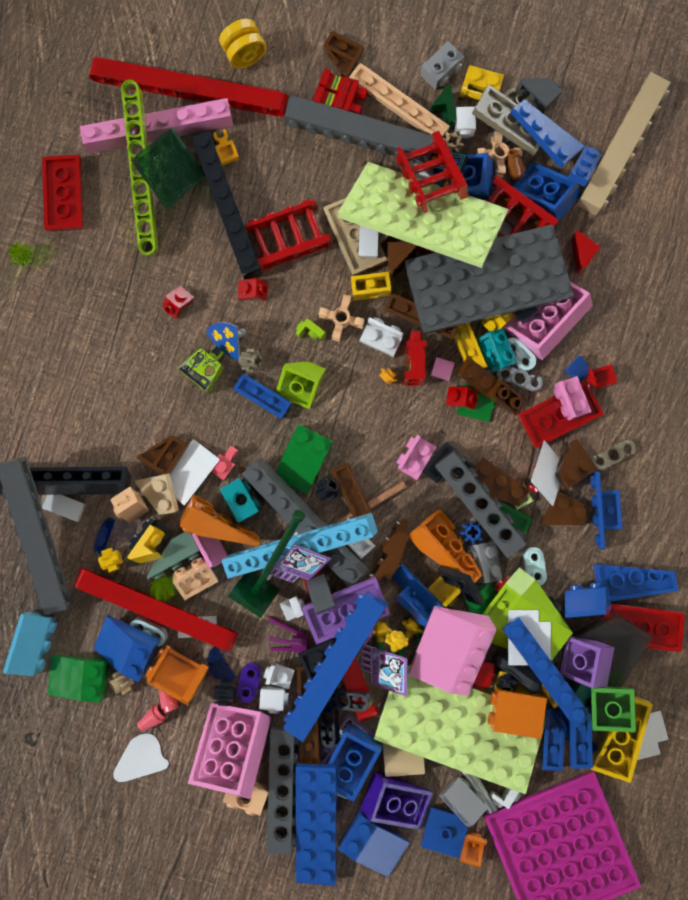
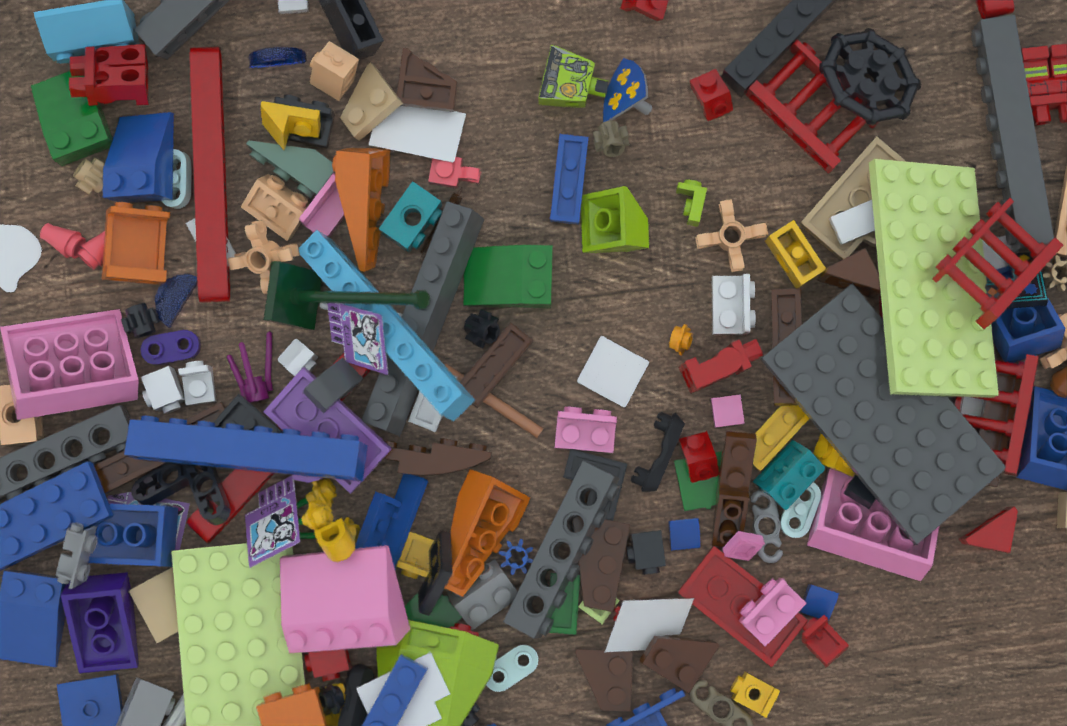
camera: 60 degrees right, 0 degrees up
(65, 642) = (111, 74): none -> red hips
(110, 560) = (248, 81): yellow gear -> none
(162, 588) = (242, 170): clear neon green gear -> none
(214, 598) = (252, 258): none -> light nougat pin
(285, 206) = (877, 65): none -> black plate
(357, 803) = (82, 544): none -> light grey hinge
(388, 424) = (613, 371): none -> white sticker
(417, 636) = (337, 546): none -> yellow plate
(438, 405) = (651, 478): none -> black piece
(502, 428) = (684, 534): none -> blue slope
(503, 454) = (646, 551): none -> black brick
(526, 396) = (743, 546): none -> bright pink tile
(620, 425) = (765, 700): none -> yellow brick

